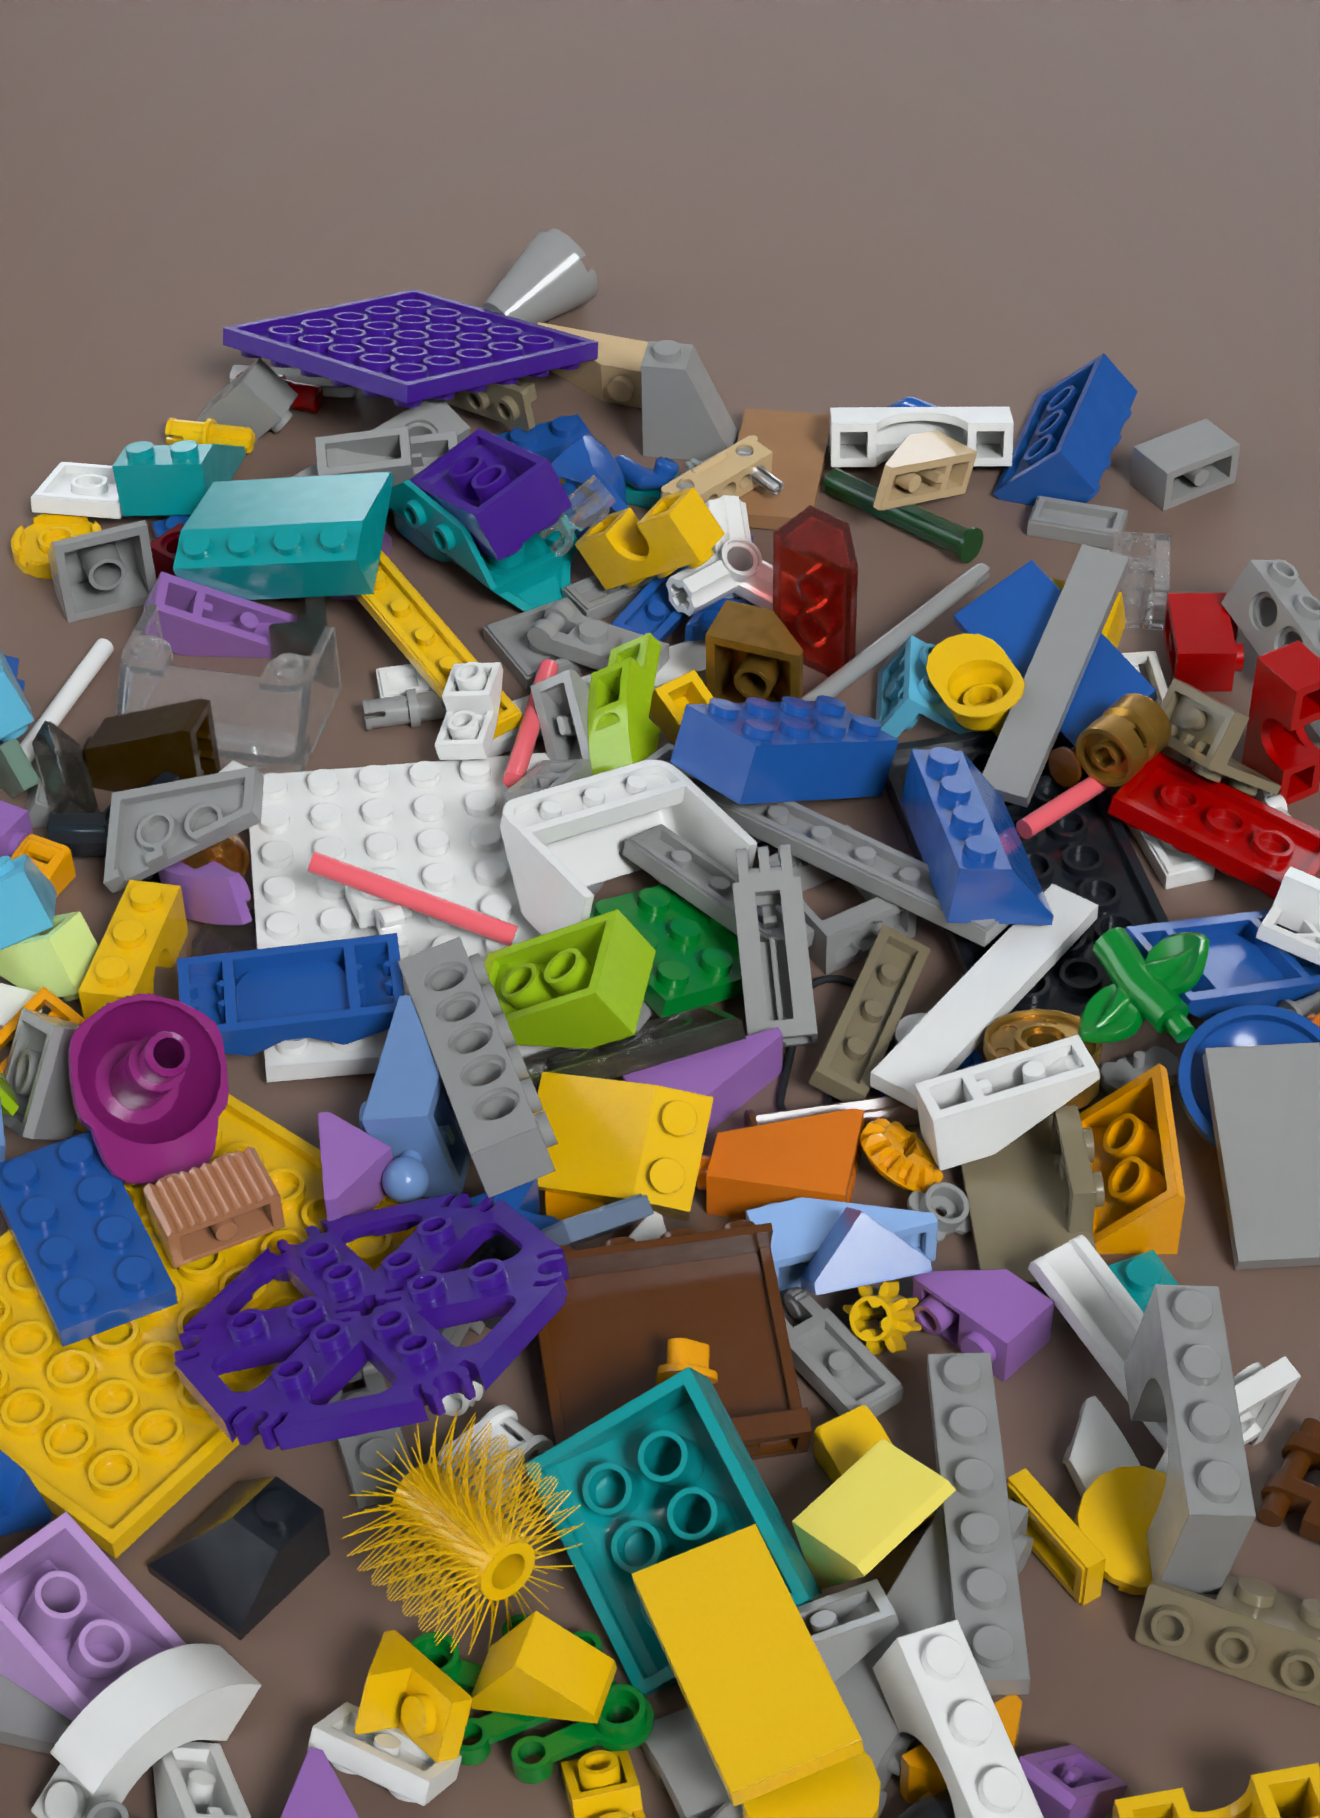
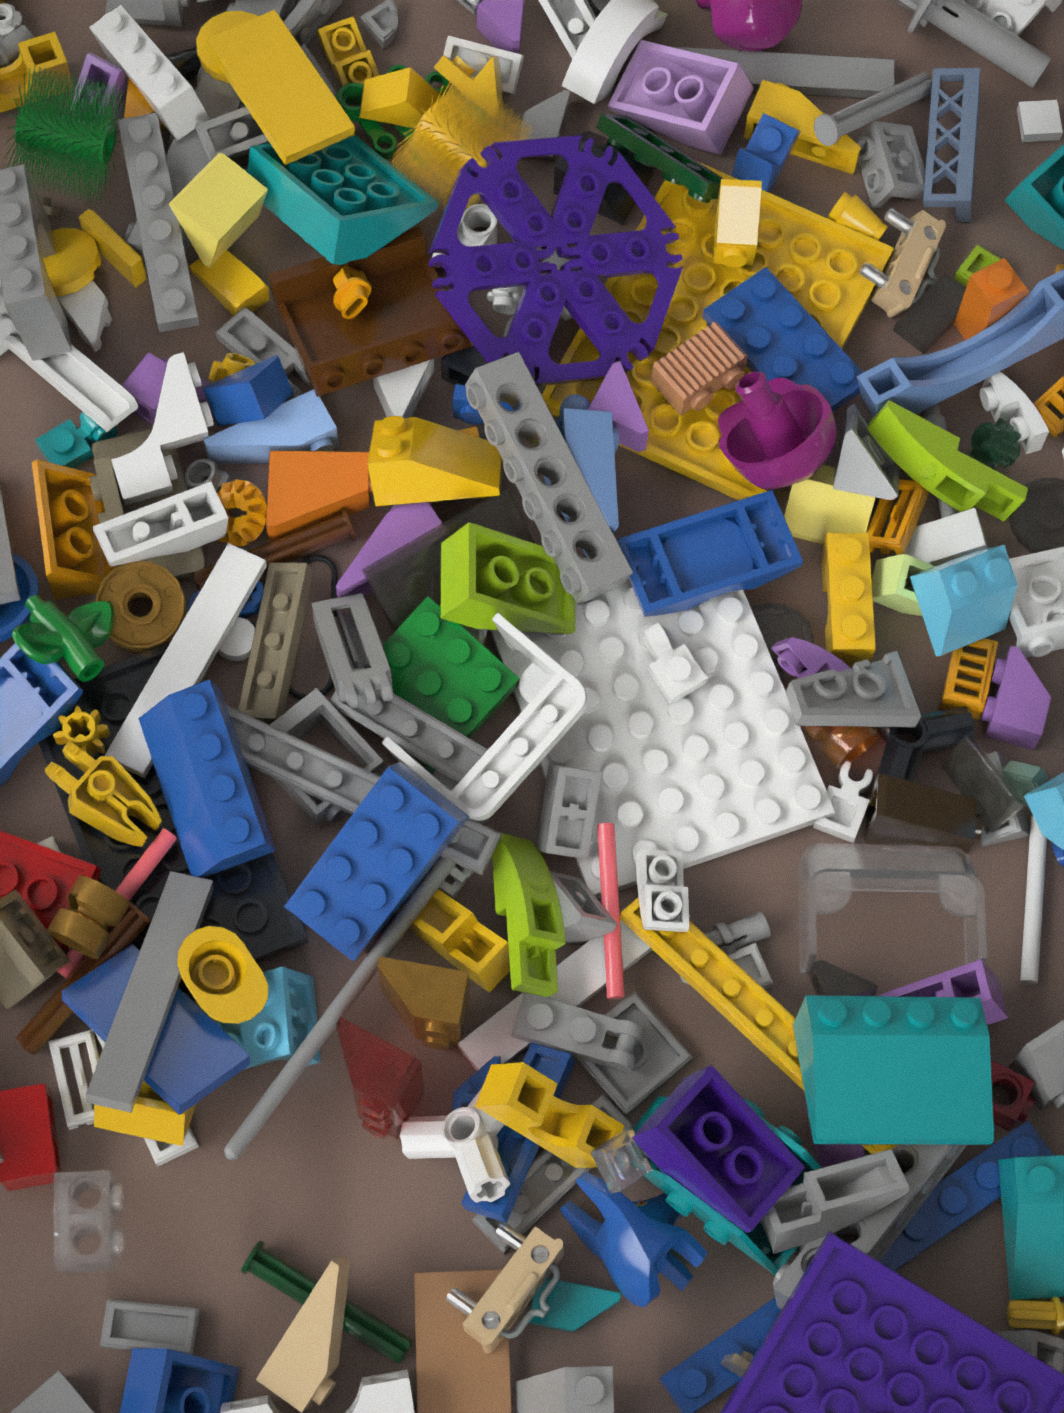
camera: 165 degrees right, 25 degrees up
(78, 1373) = (737, 222): none -> slope
(144, 1510) = (658, 153): none -> dark green plate
(311, 1639) = (546, 118): none -> light grey slope
(412, 898) = (644, 653): coral bar -> none
(599, 1221) = (437, 381): sand blue tile -> none
(648, 478) = (589, 1296): blue arm -> none
(978, 1221) = (177, 423): none -> white arch
(1099, 852) = (105, 796): none -> yellow hinge
(1121, 1661) = (65, 134): none -> green piece
(1123, 909) = (82, 723): none -> yellow gear

